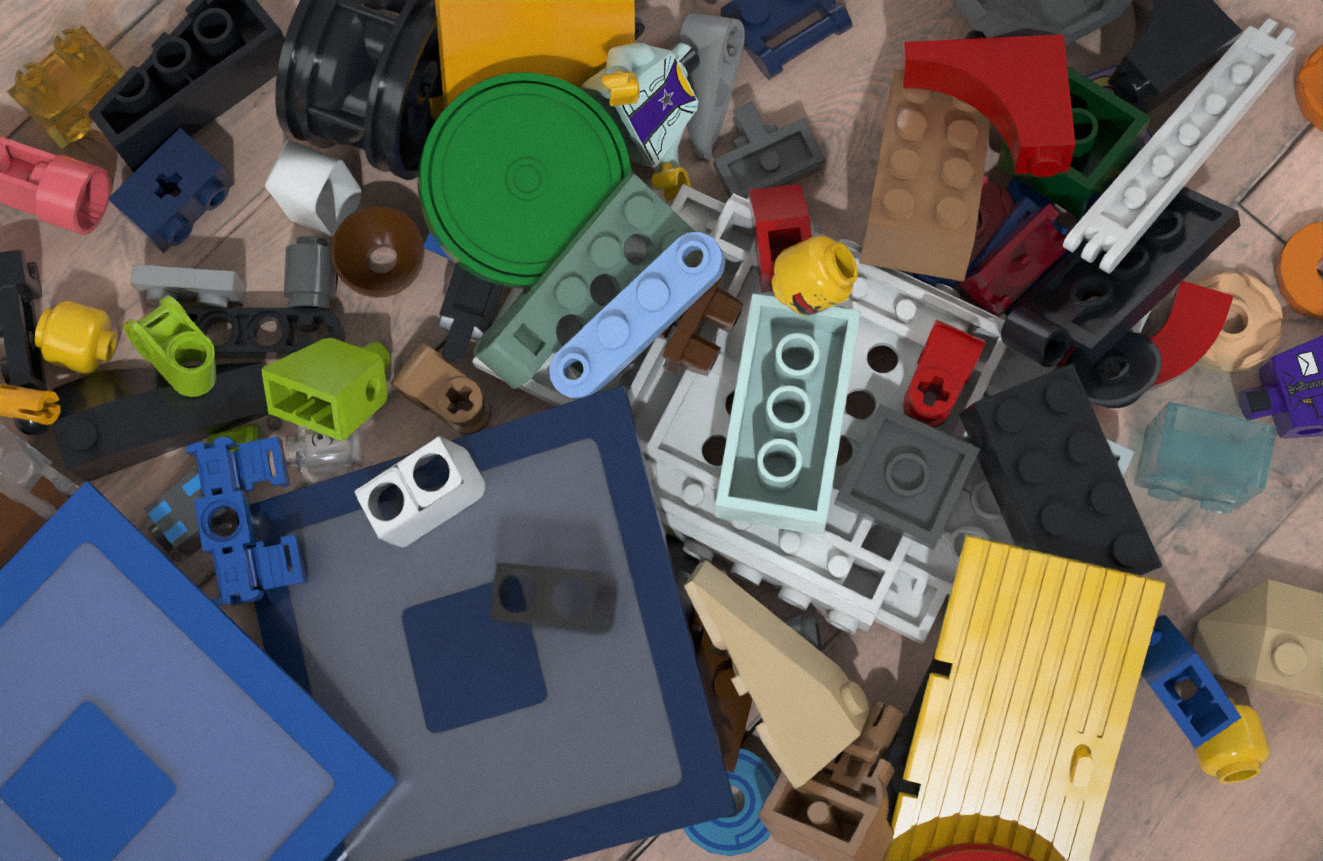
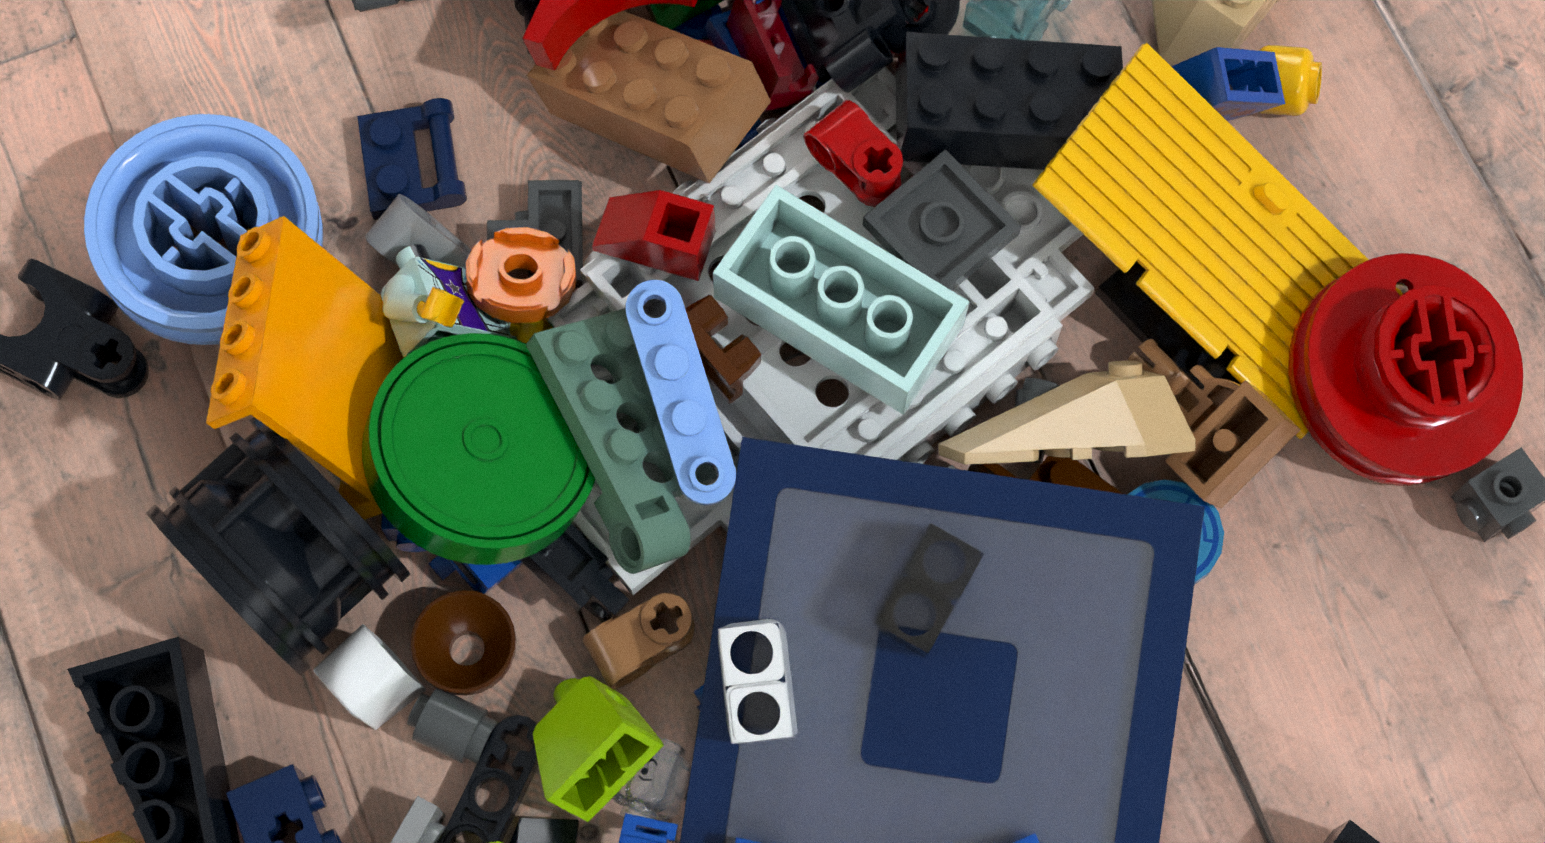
camera: 75 degrees left, 5 degrees down
(693, 170) = (520, 299): none -> orange tile
(814, 275) = (731, 201): yellow head -> none

